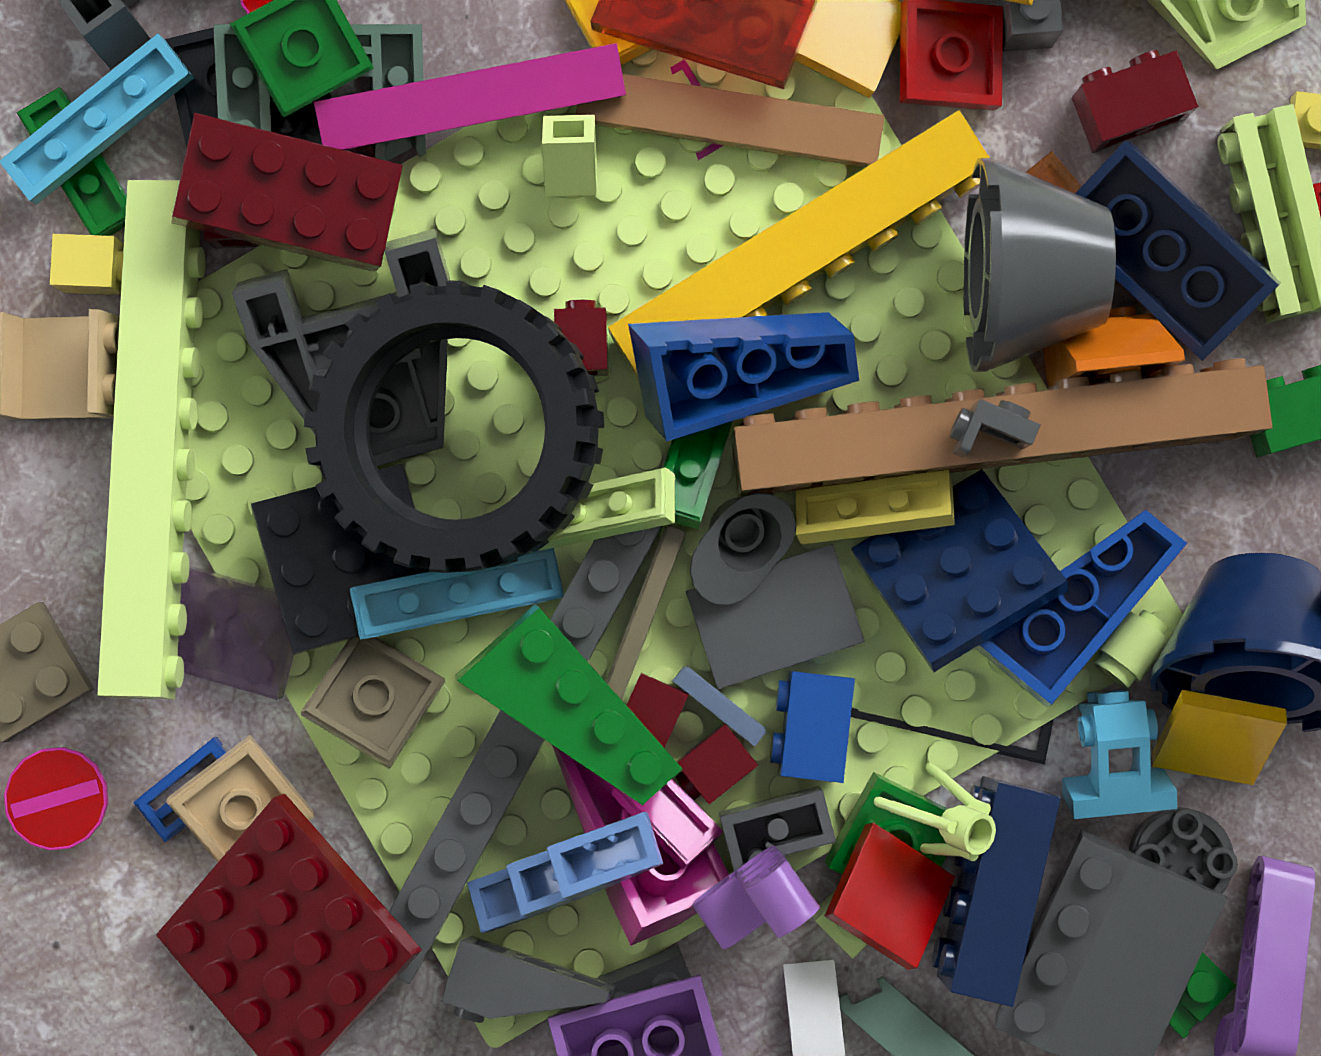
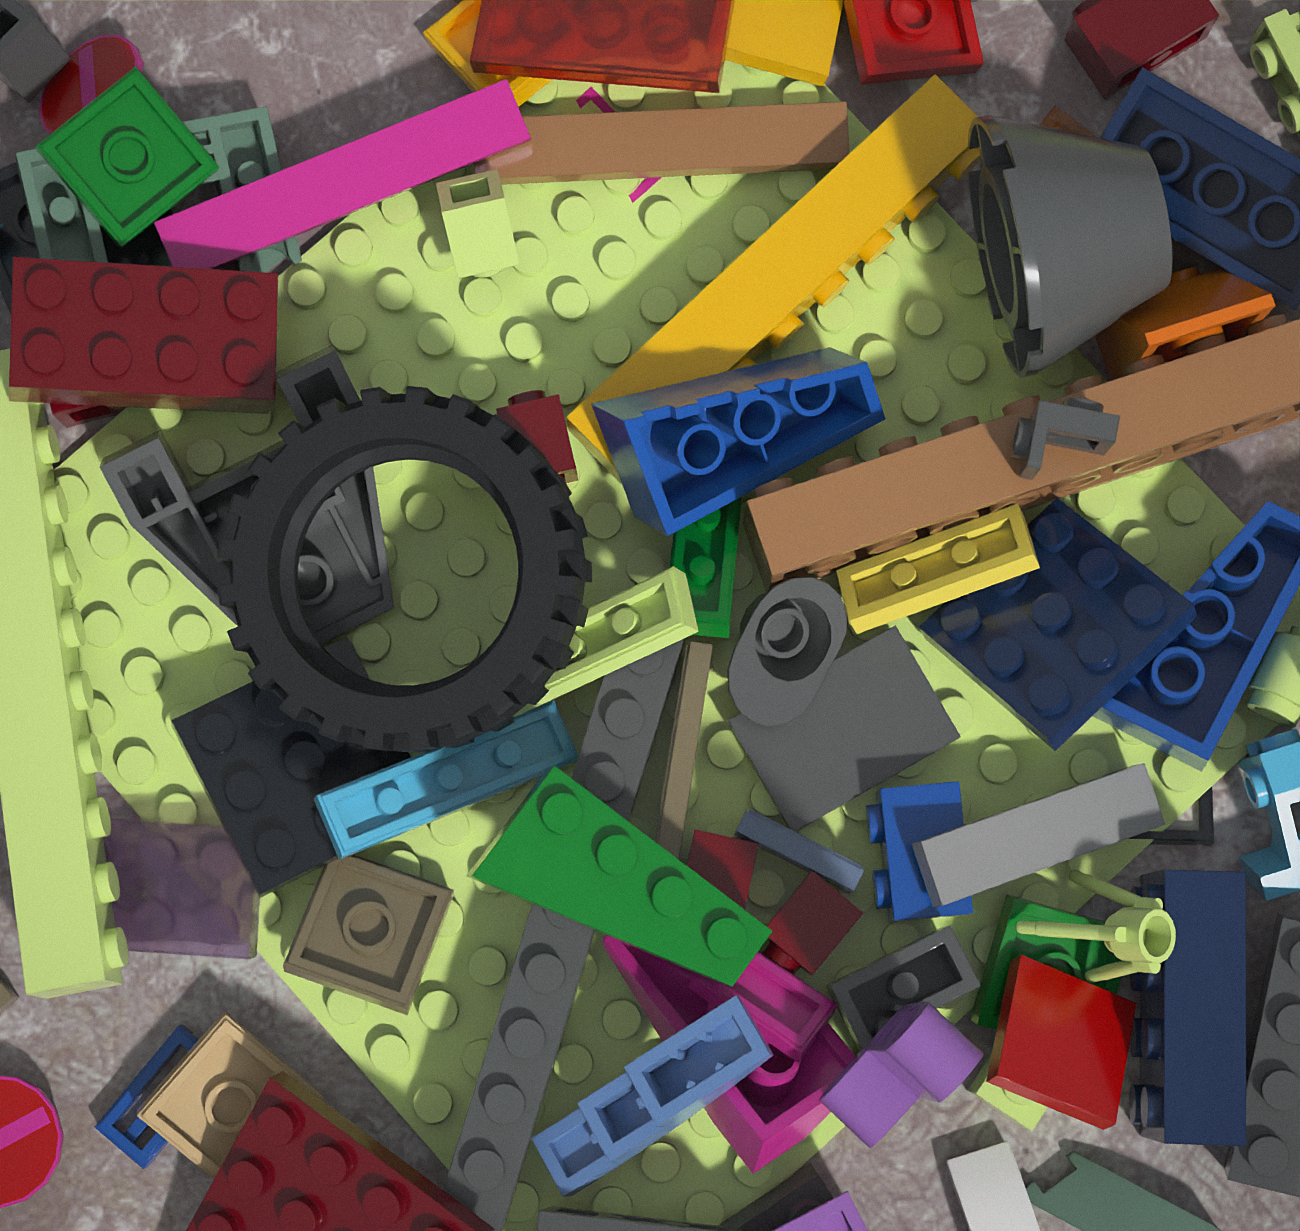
camera: 10 degrees left, 5 degrees down
(907, 732) = (1037, 834): none -> light grey tile

